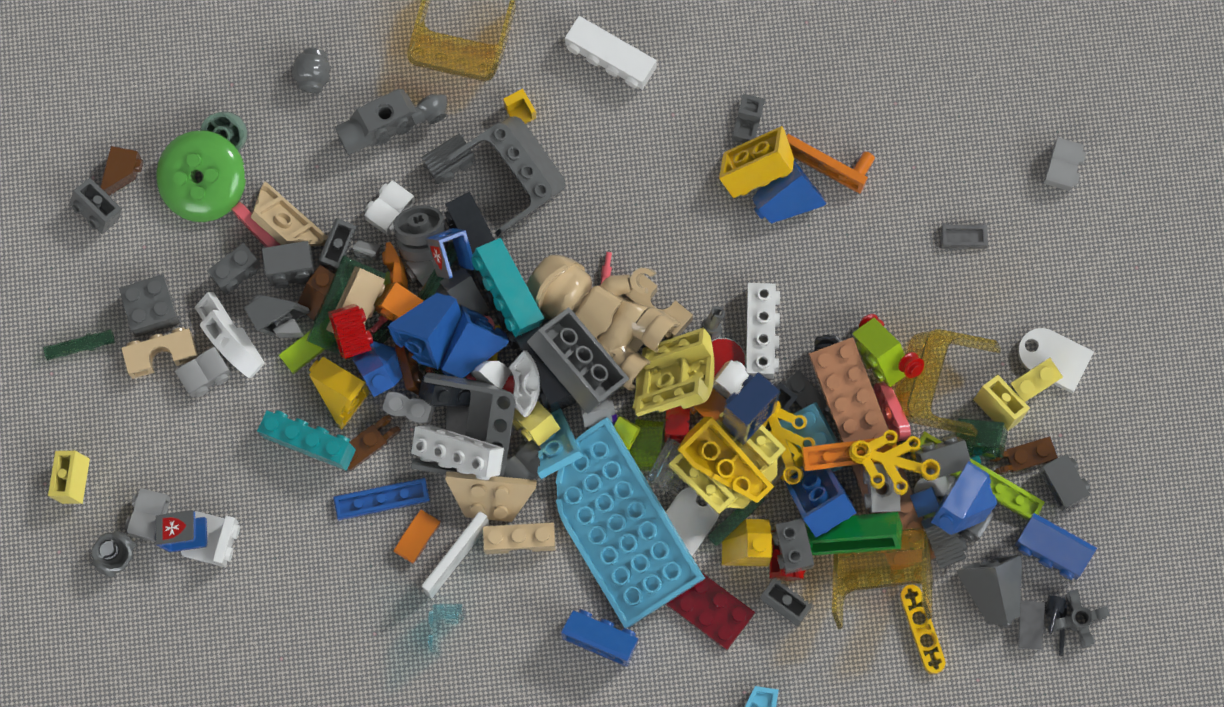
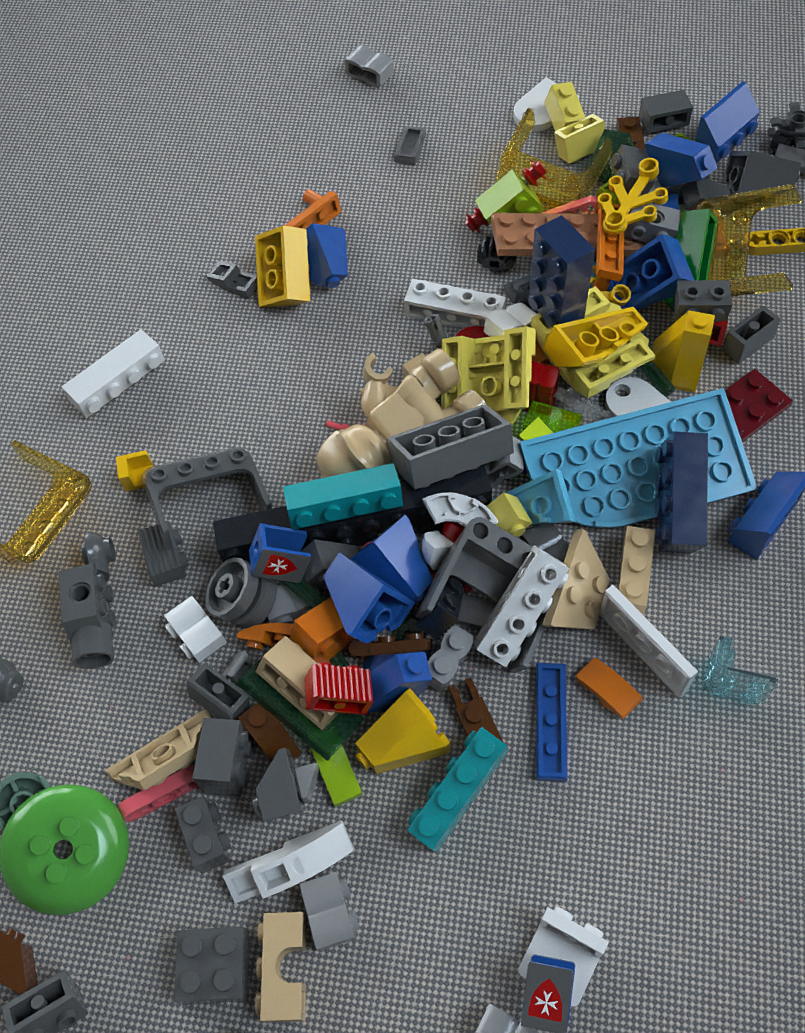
camera: 70 degrees left, 15 degrees down
(588, 559) = (682, 493): none -> dark blue brick

